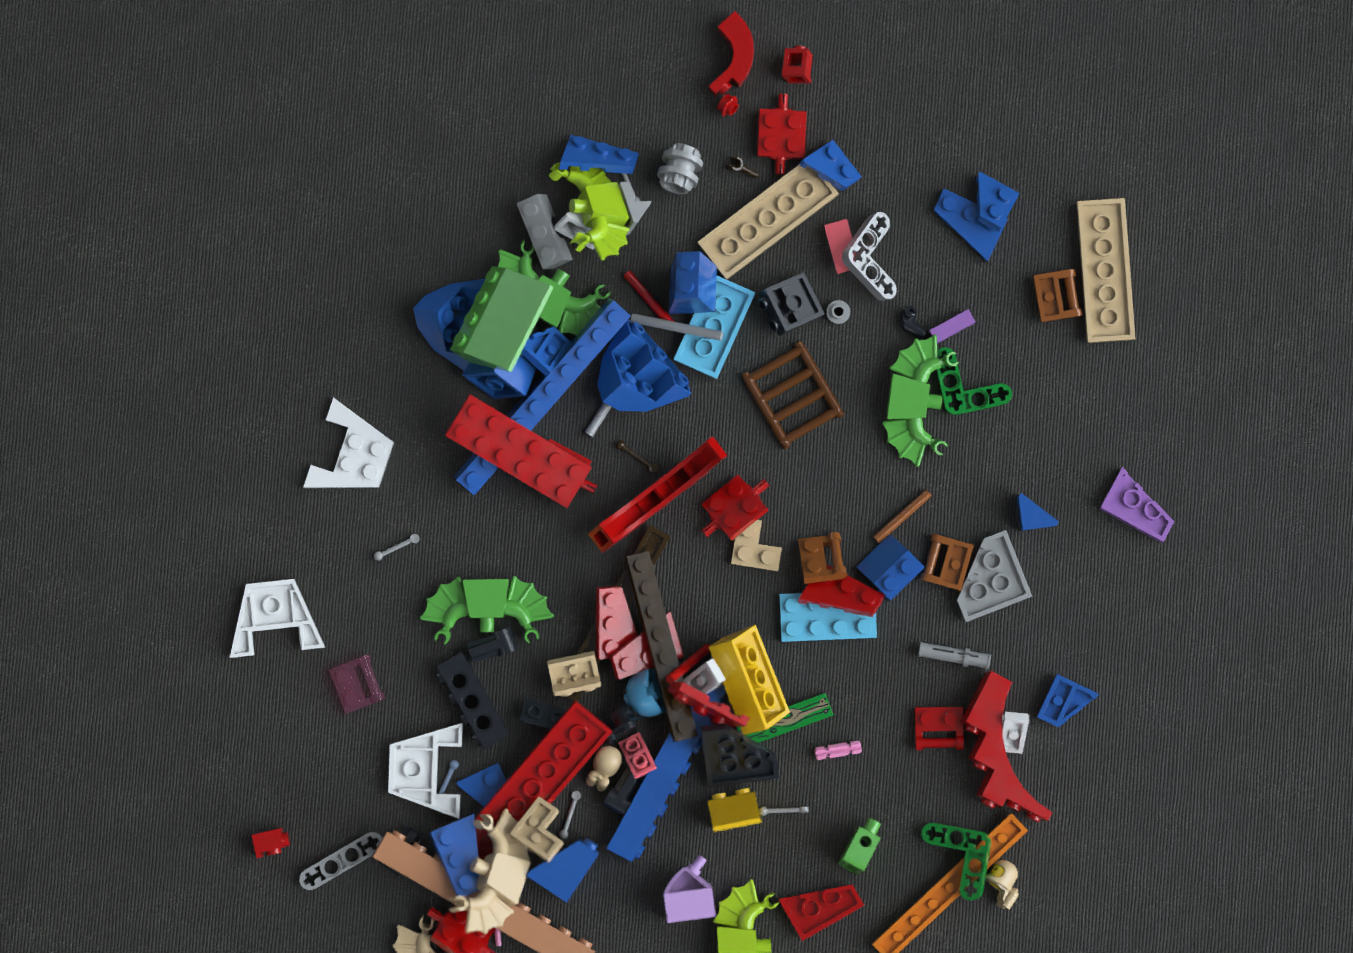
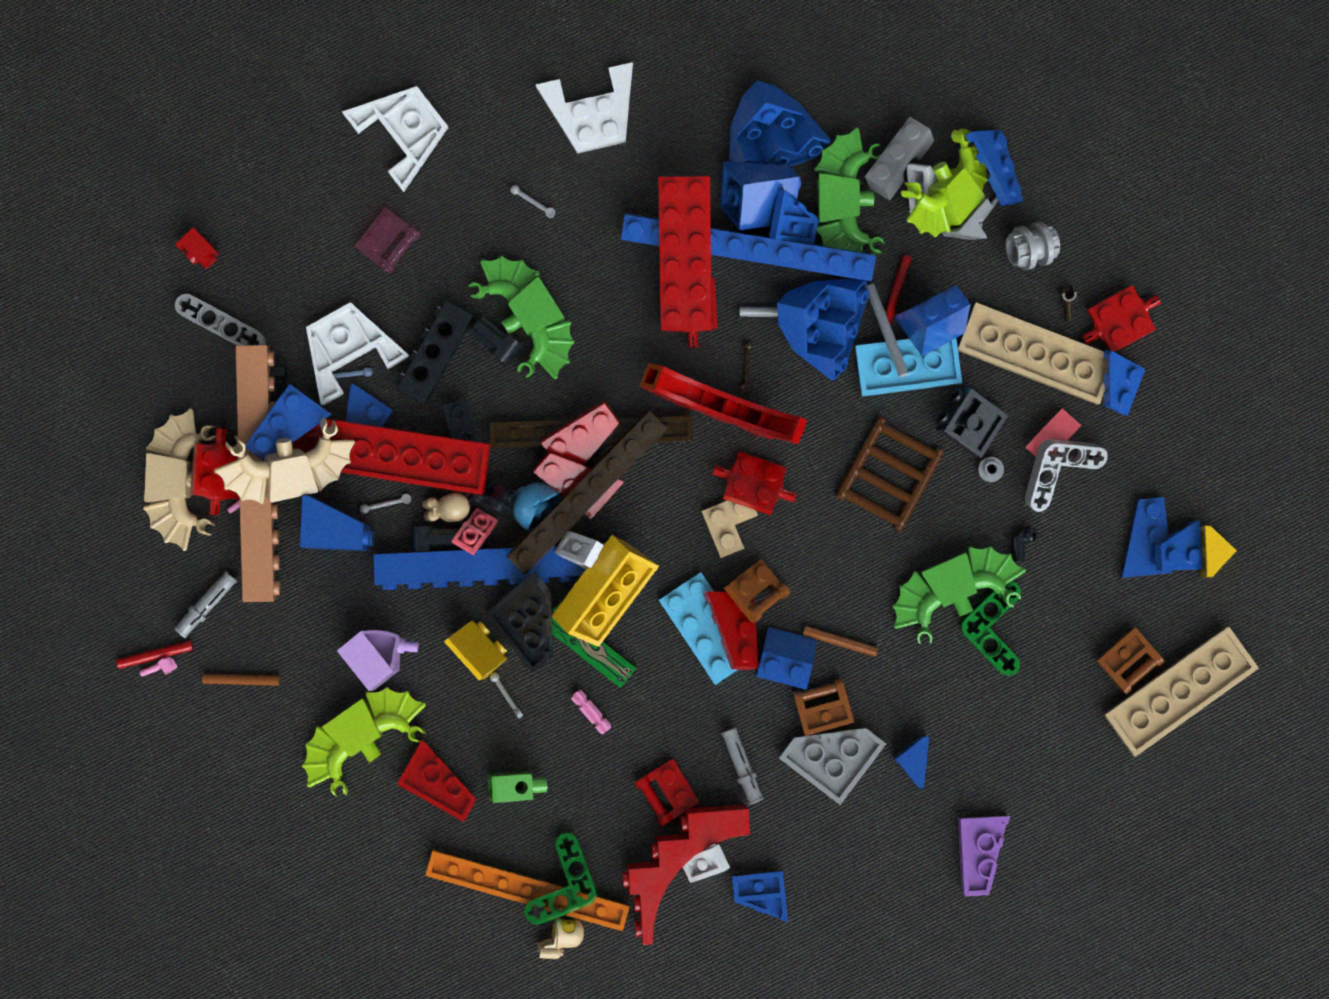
camera: 55 degrees right, 0 degrees up
(501, 319) = (795, 162): bright green slope -> none
(532, 830) = (346, 476): tan plate -> none
(574, 674) = (513, 428): tan bracket -> none
(688, 664) = (584, 526): red bar -> none
(700, 702) = (553, 563): red wing -> none
(728, 105) = (1117, 254): red plate -> none
(740, 39) = (1186, 226): red arch -> none
(791, 70) = (1193, 295): red brick -> none
(952, 326) = (1042, 581): medium lavender piece -> none
(1012, 175) = (1215, 551): none -> yellow slope

